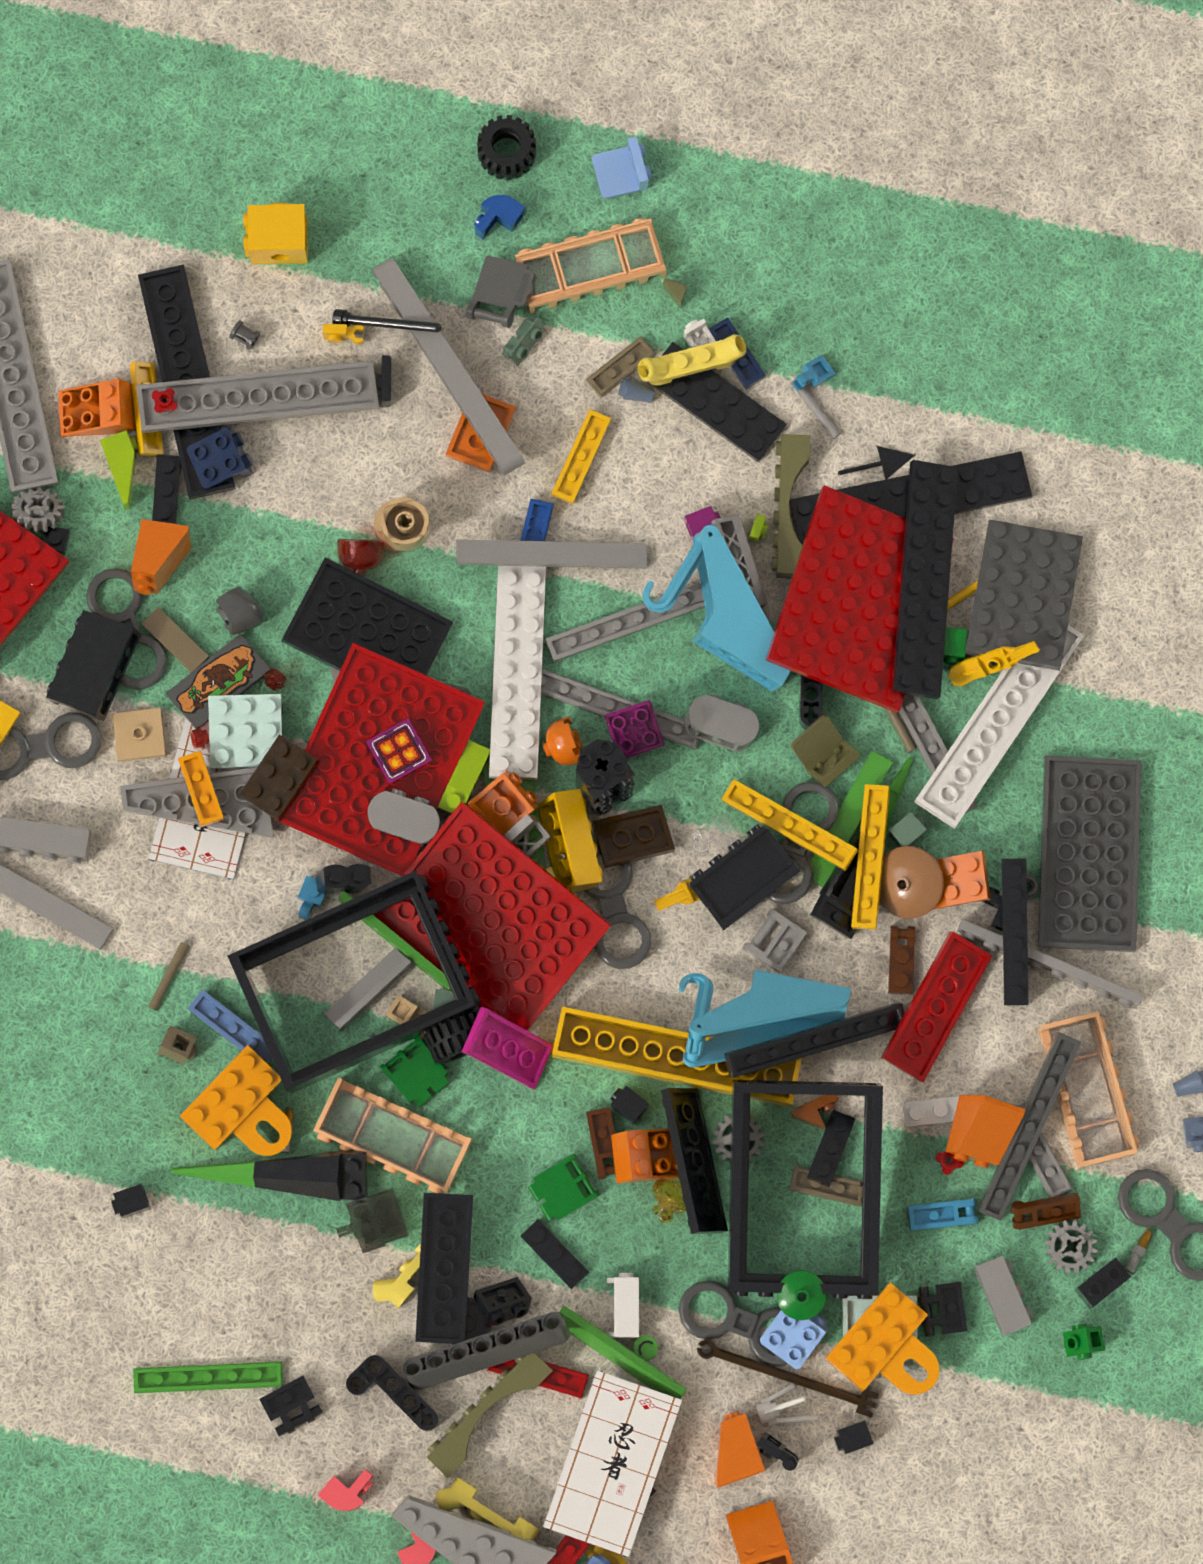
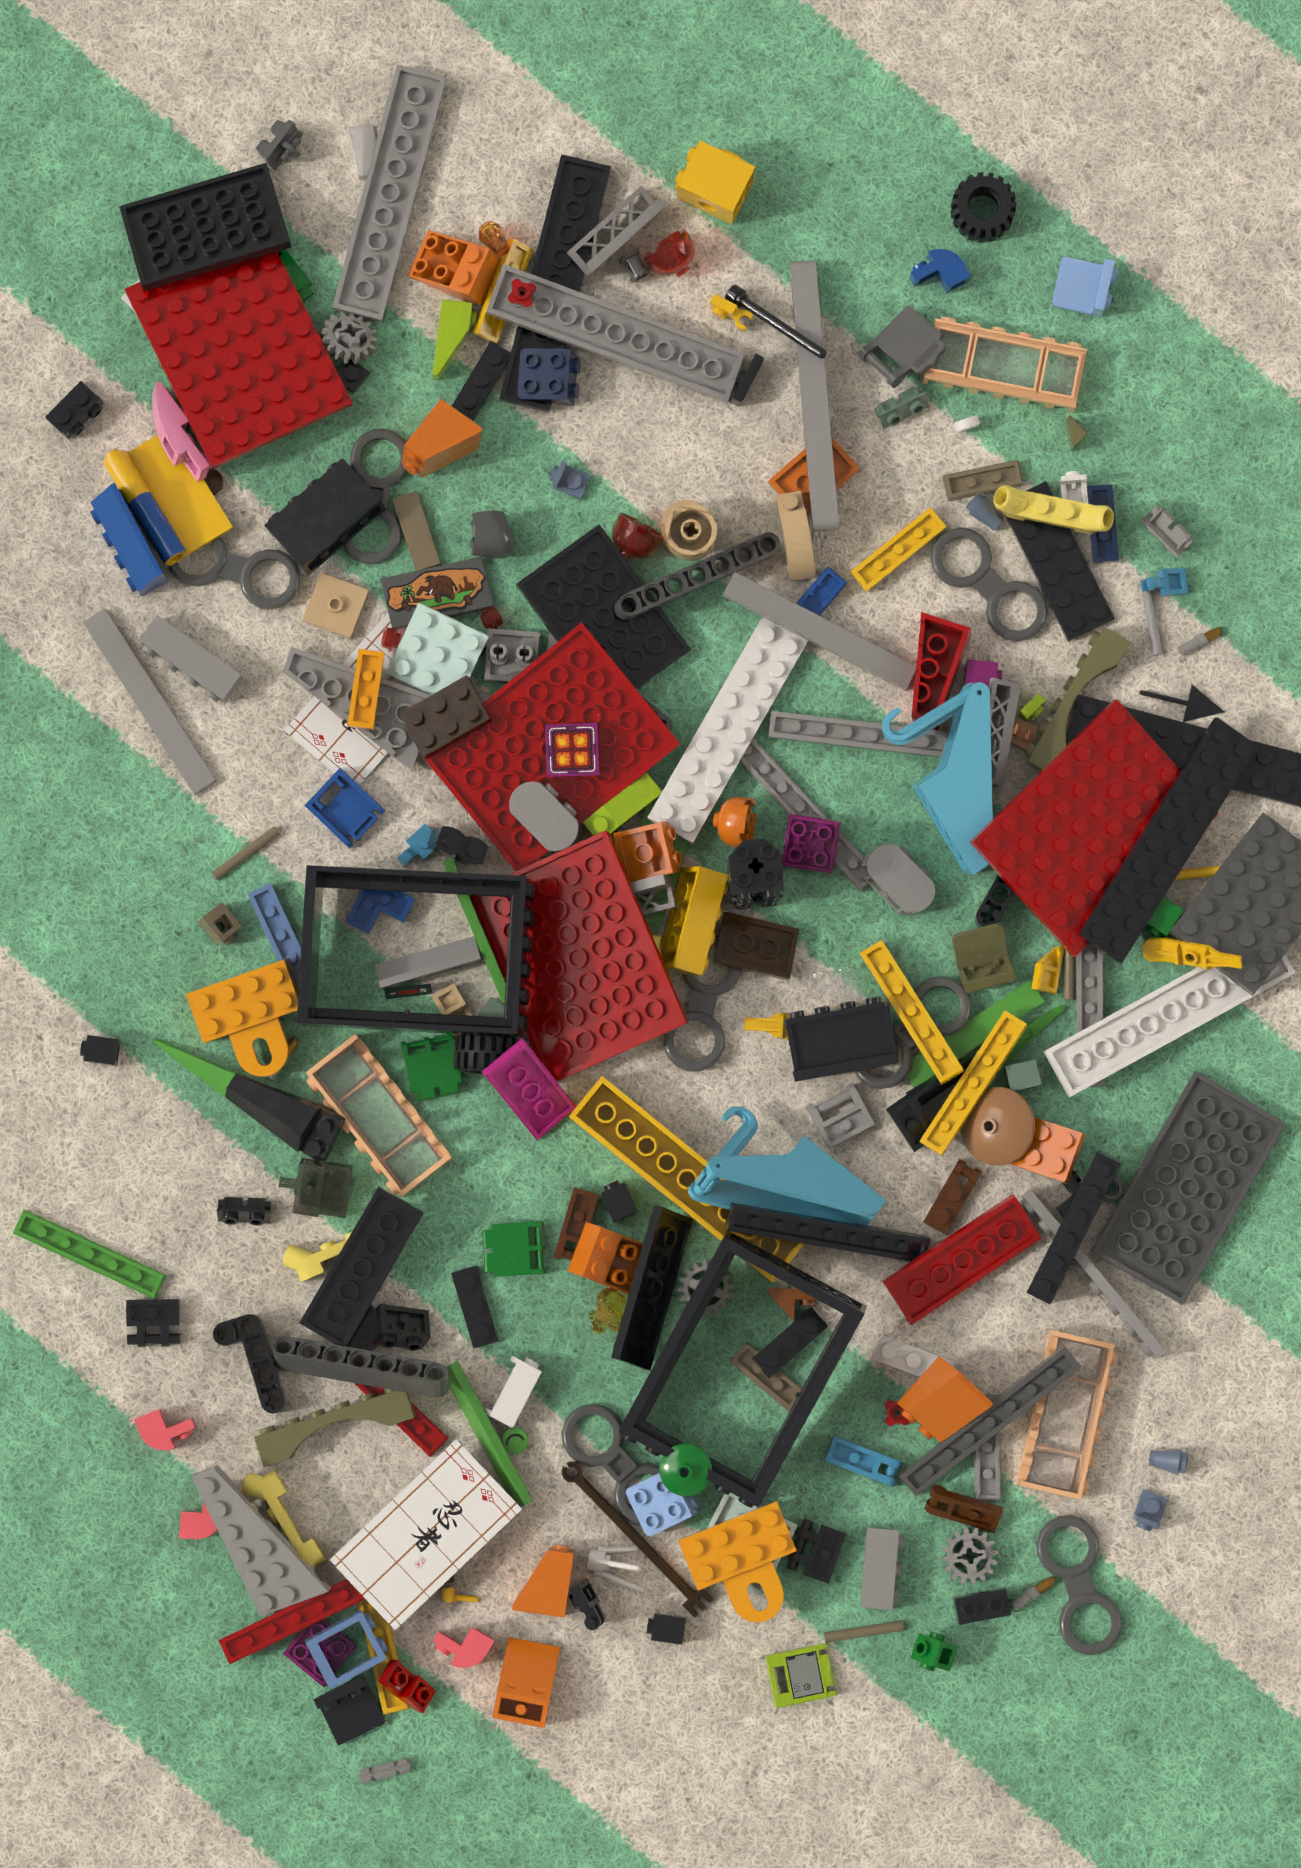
camera: 30 degrees right, 5 degrees up
(114, 368) = (493, 237): none -> clear orange cone
(224, 313) = (624, 235): none -> light grey fence
(236, 898) = (349, 811): none -> blue container
(271, 310) = (672, 254): none -> clear red cylinder
(281, 535) = (569, 480): none -> sand blue bracket
(295, 963) = (372, 902): none -> blue plate
(304, 701) = (509, 653): none -> light grey plate
(331, 1271) = (256, 1213): none -> black hinge
(363, 1021) = (408, 991): none -> black sticker
(422, 568) = (708, 570): none -> dark grey beam
(493, 486) = (796, 536): none -> tan arch
(584, 327) = (966, 424): none -> white tile
(657, 1505) = (448, 1595): none -> yellow hand
(662, 530) = (938, 662): none -> red wedge
(669, 447) = (988, 584): none -> dark grey bar
(700, 1545) = (469, 1652): none -> coral brick
(761, 554) = (1023, 734): none -> nougat tile
(782, 330) = (1175, 539): none -> light grey hinge
(864, 408) = (1199, 641): none -> light grey piece
(883, 736) = (1048, 971): none -> yellow tile
(987, 1415) = (805, 1675): none -> container
(1016, 1356) = (863, 1631): none -> dark tan bar

